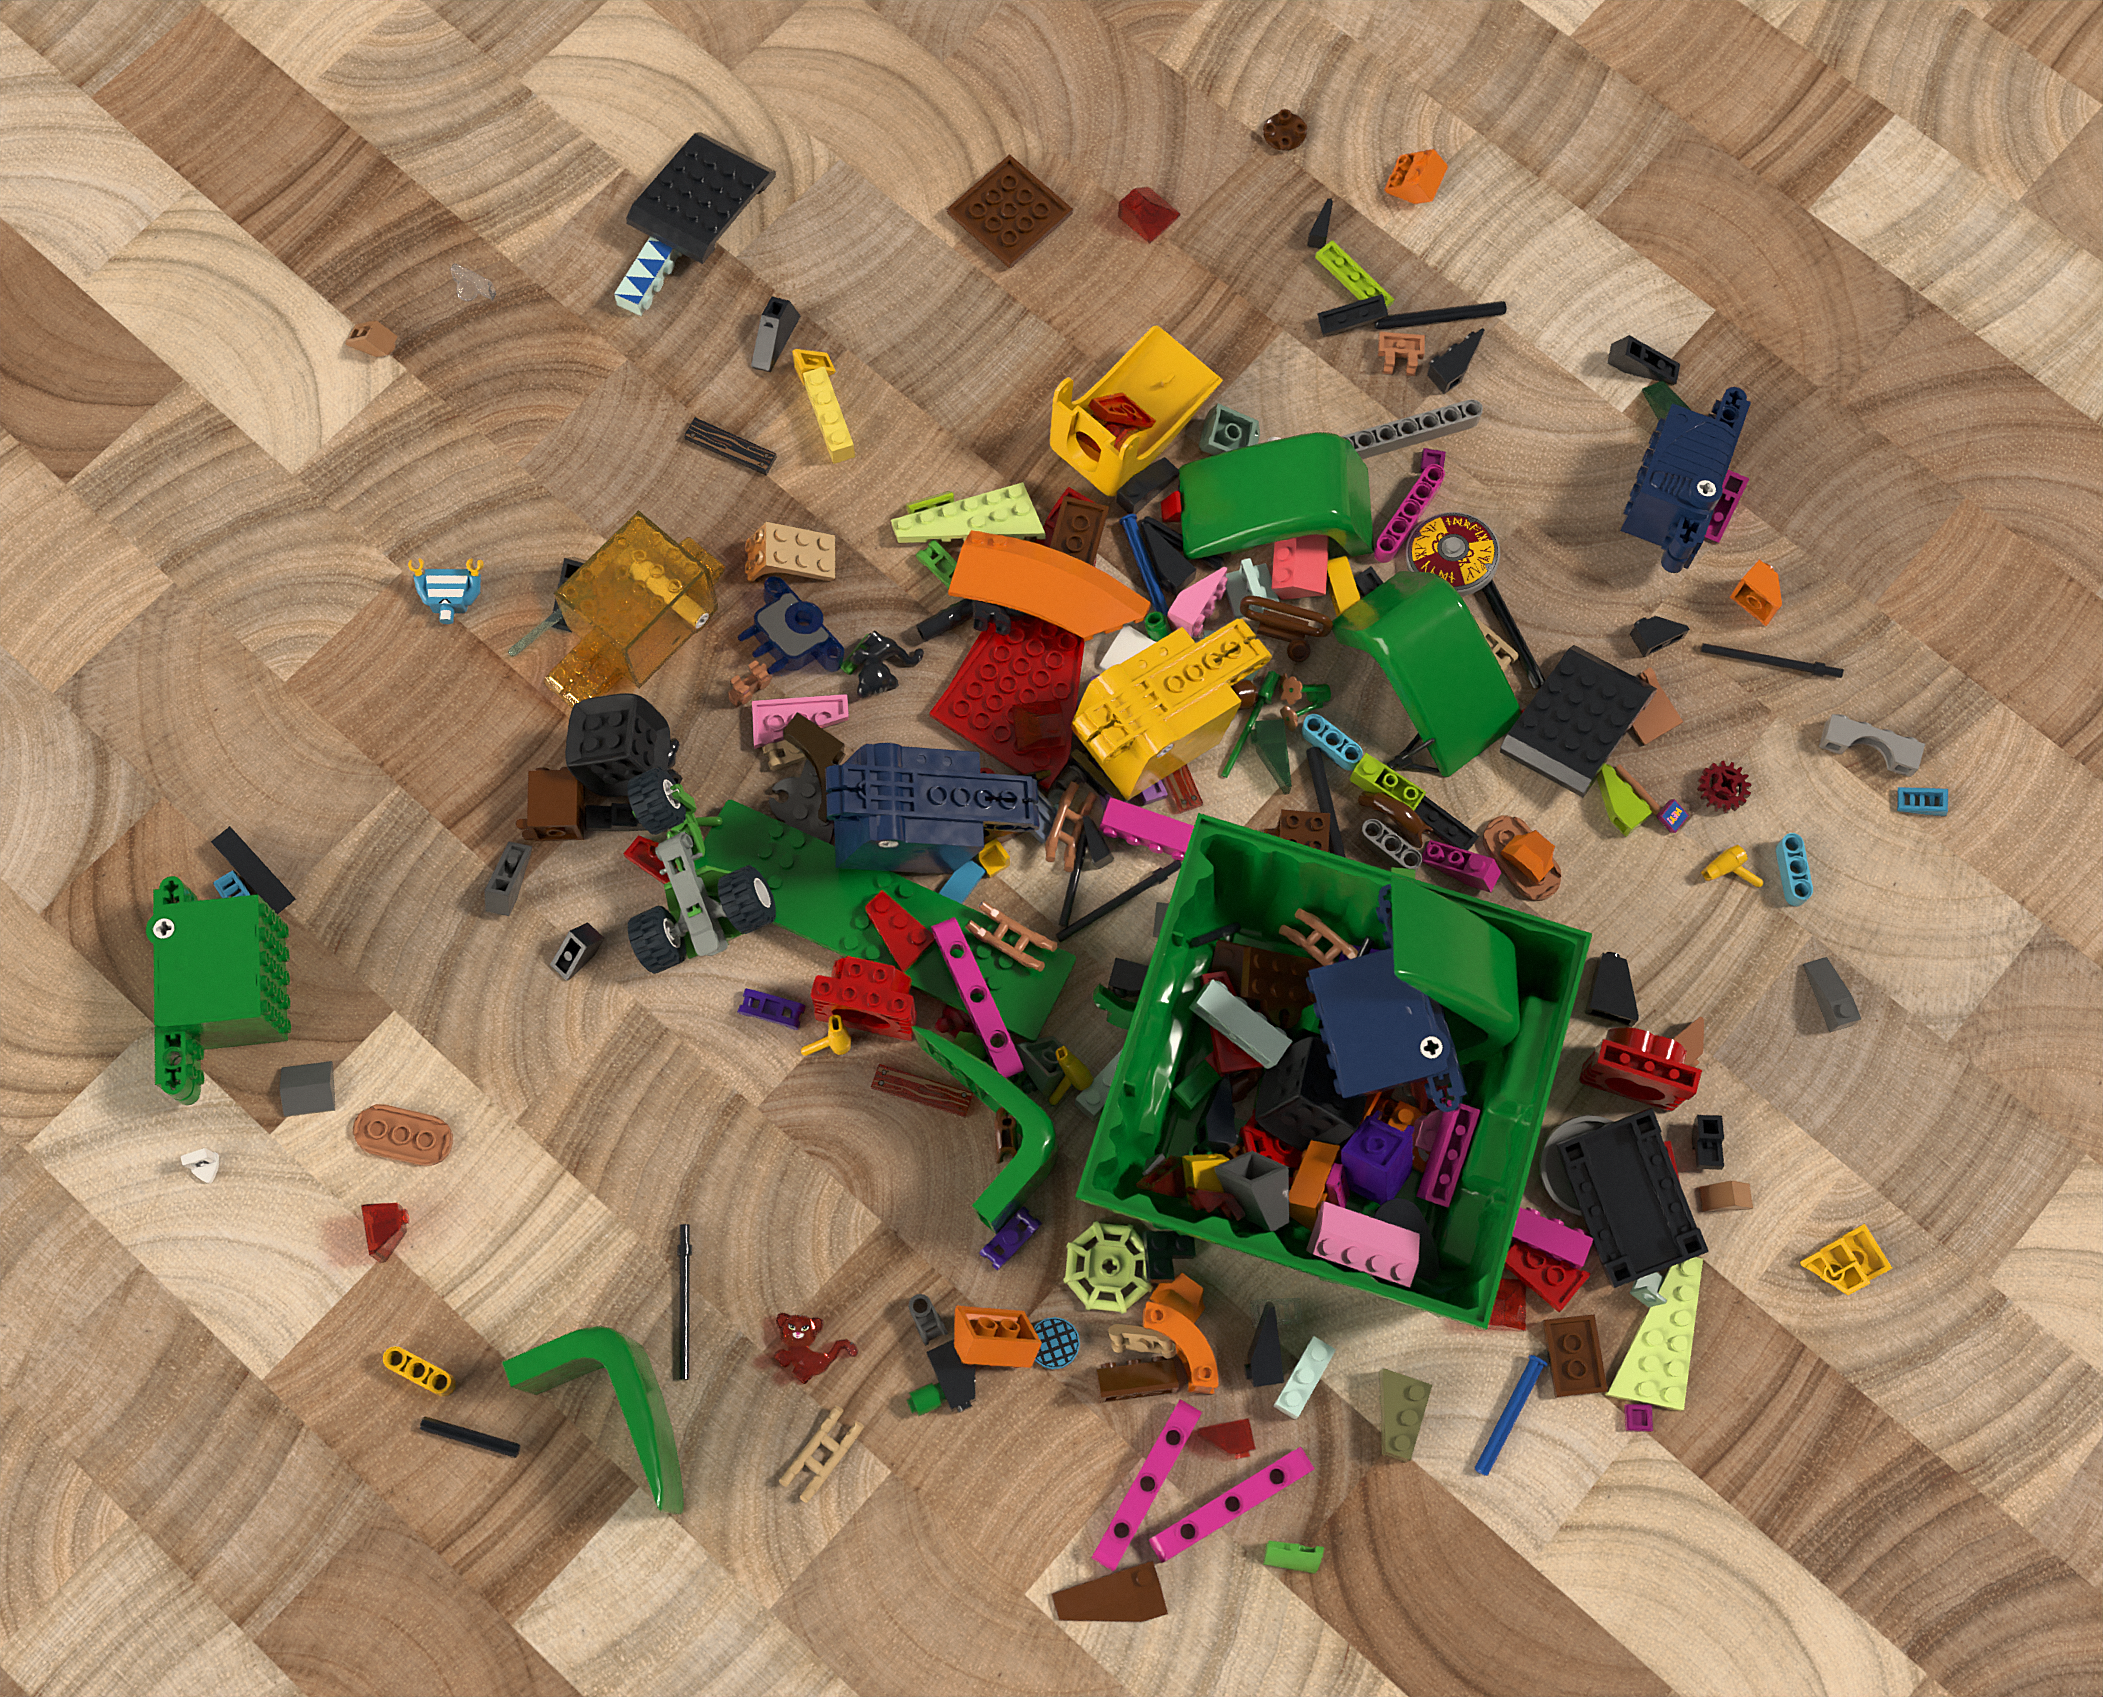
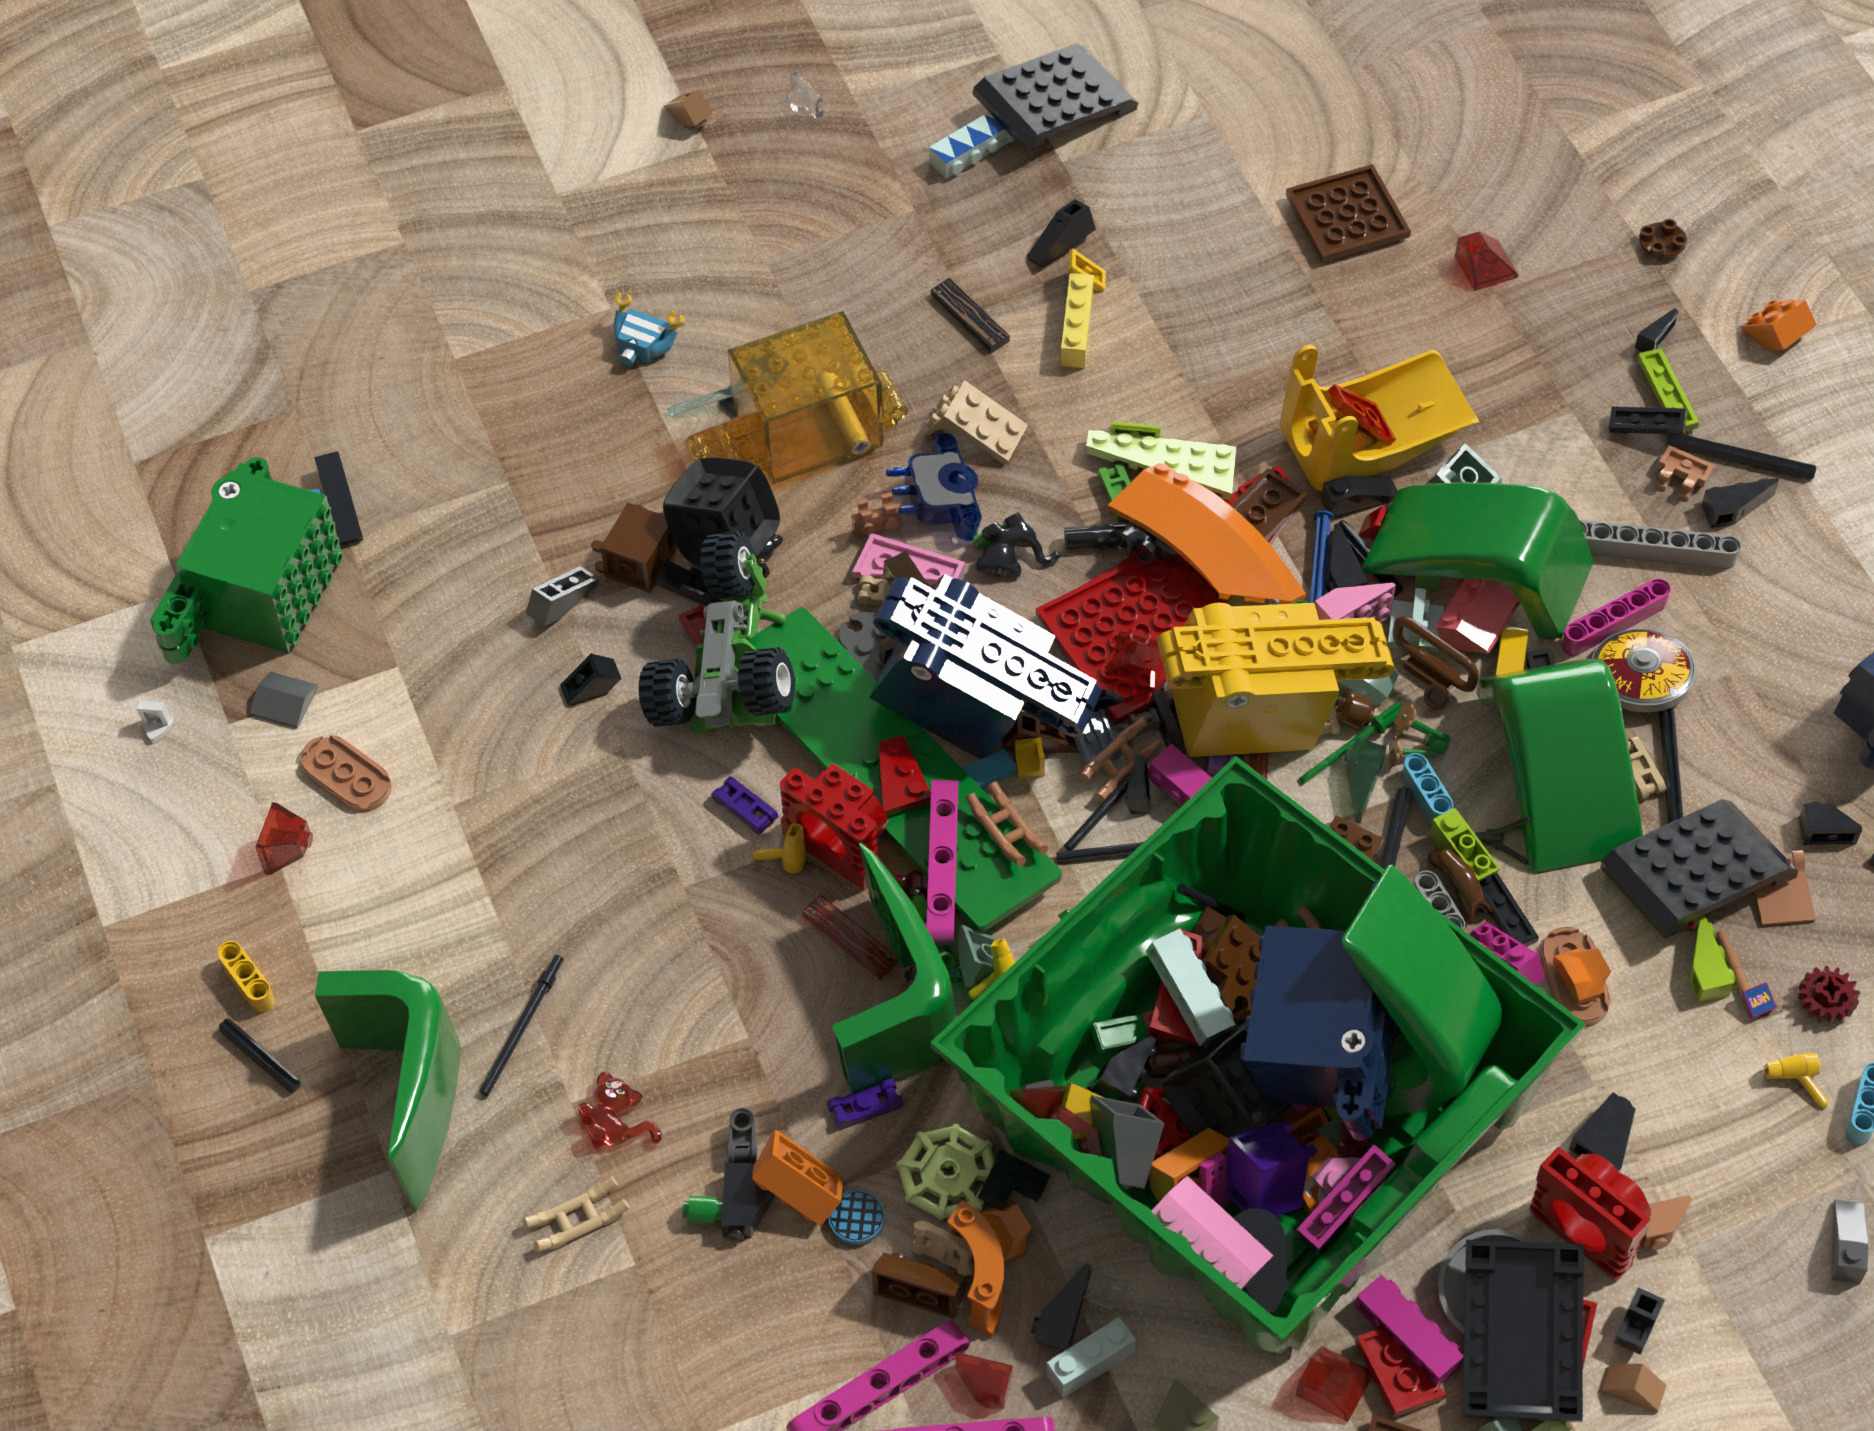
camera: 30 degrees right, 15 degrees down
(1430, 457) = (1674, 579): magenta tile -> none

